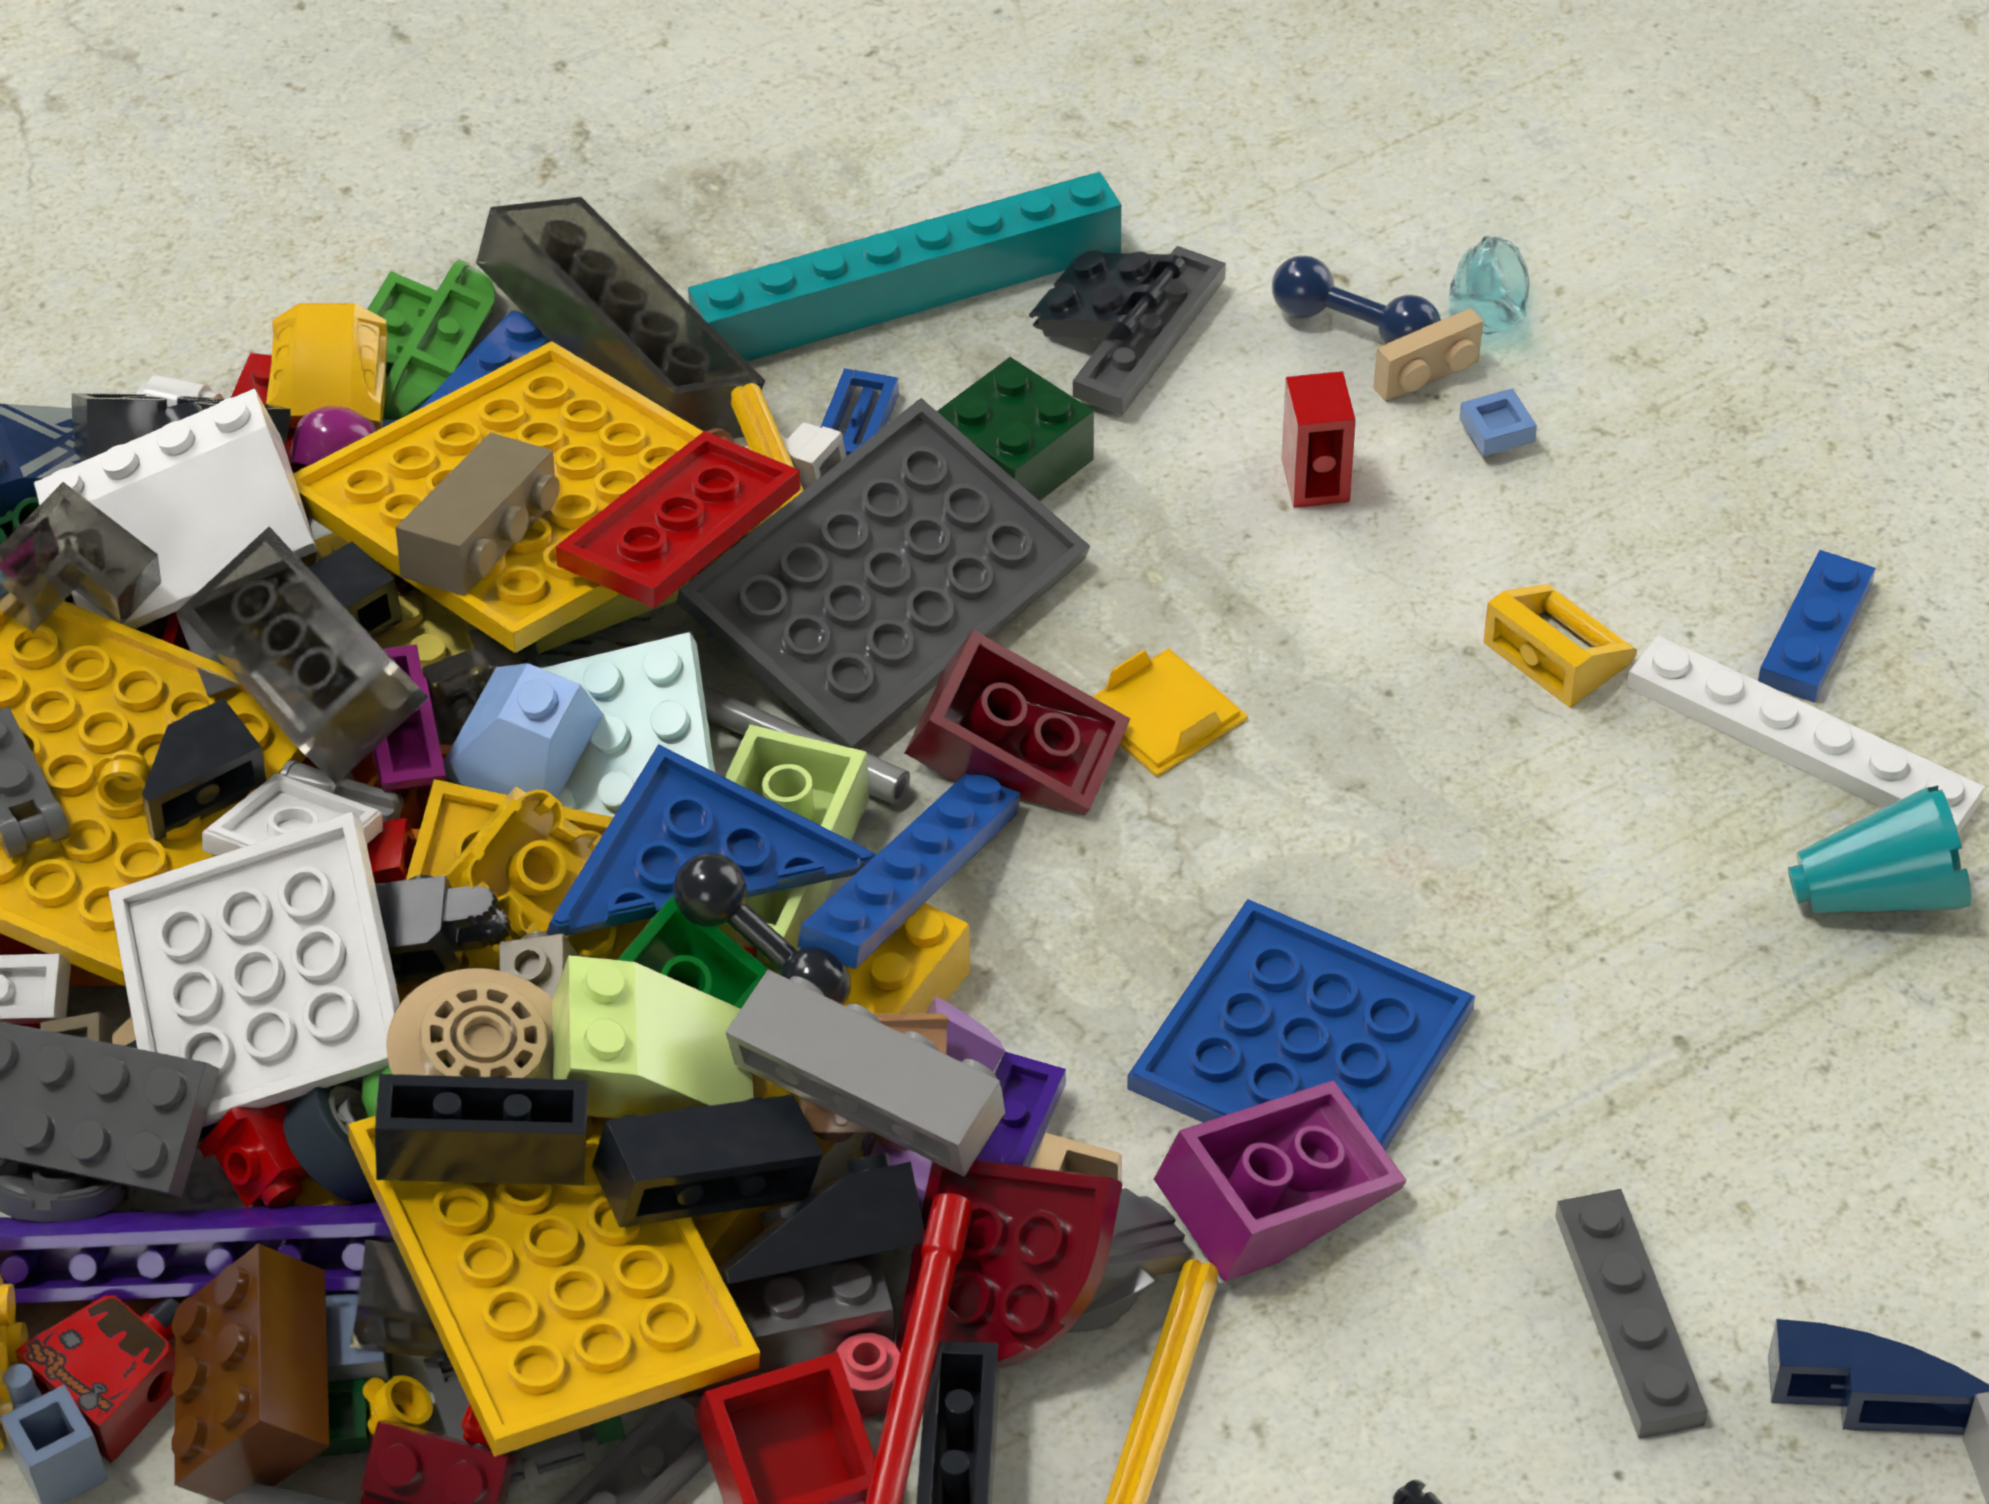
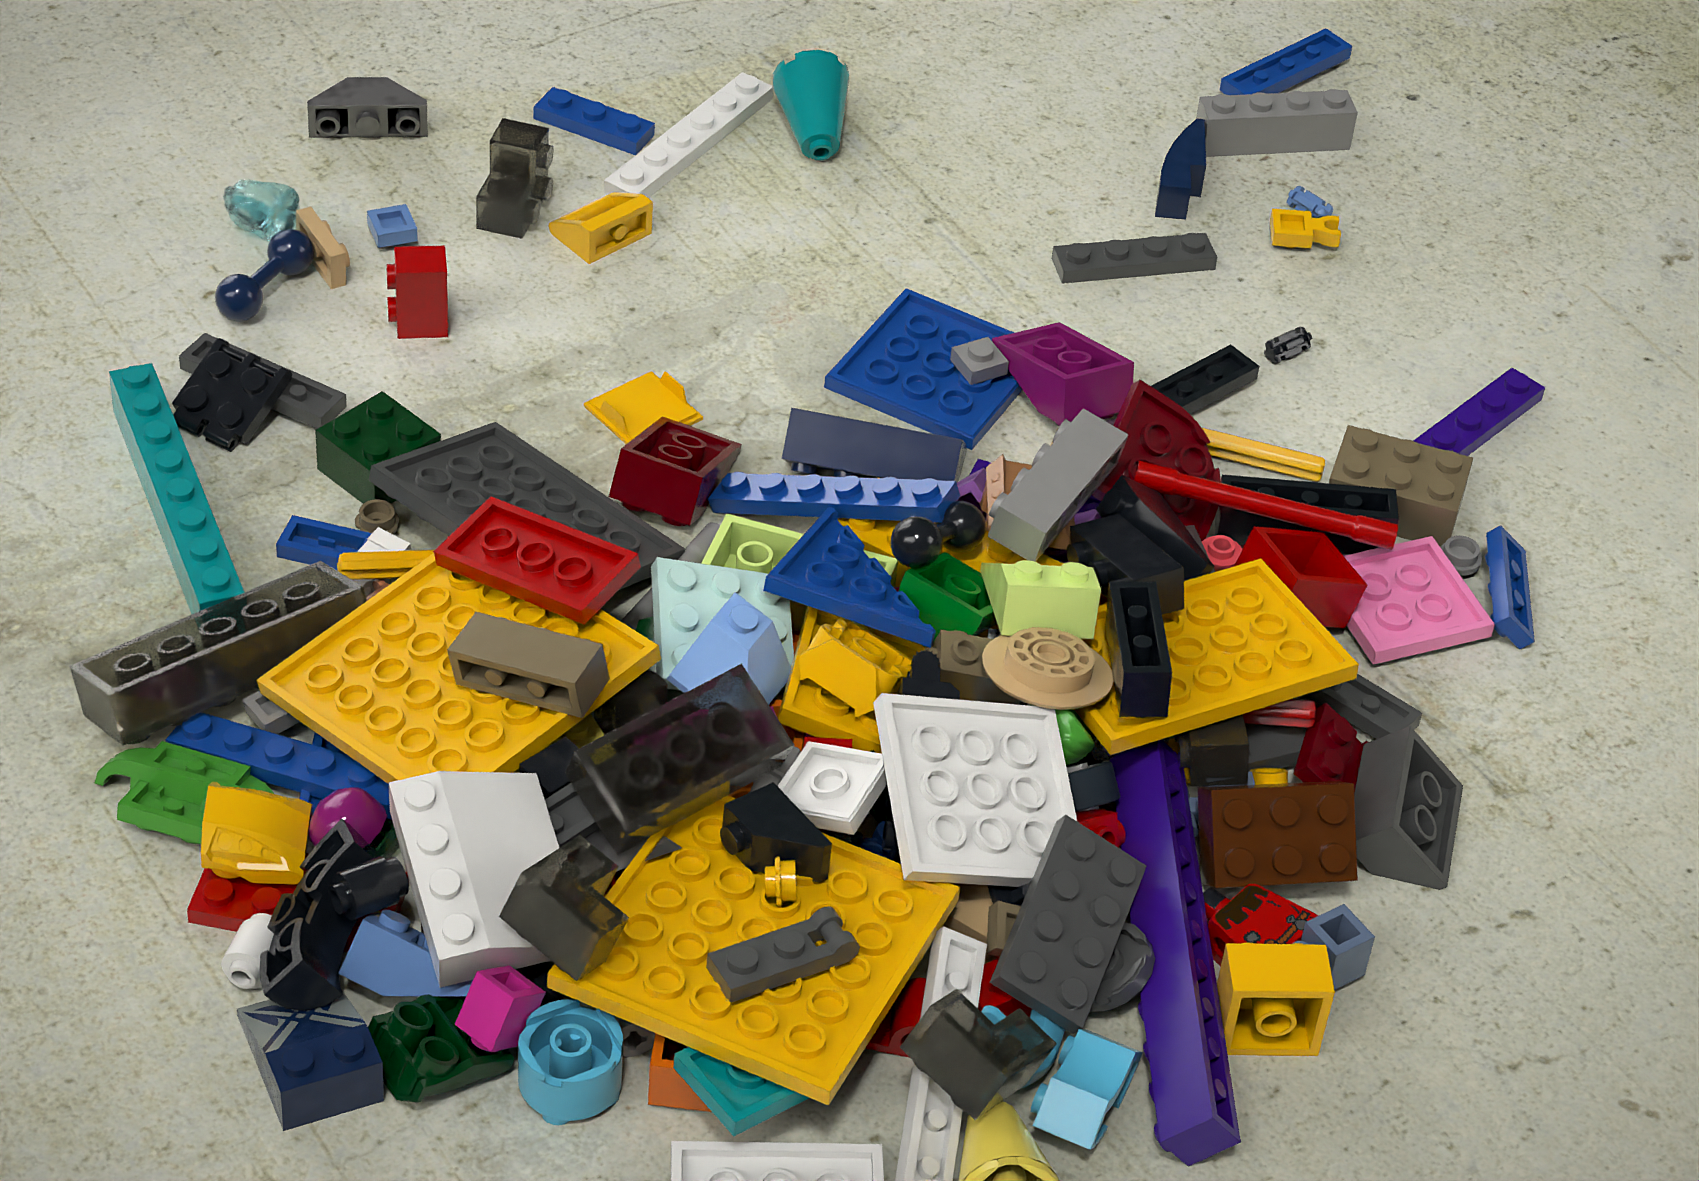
camera: 95 degrees left, 5 degrees down
(1079, 951) = (869, 449): none -> dark blue slope
(1291, 1067) = (979, 360): none -> light grey plate
(1295, 1377) = (1209, 379): none -> black plate
(1602, 531) = (516, 179): none -> clear smoke brick
(1751, 370) = (367, 110): none -> flat silver slope

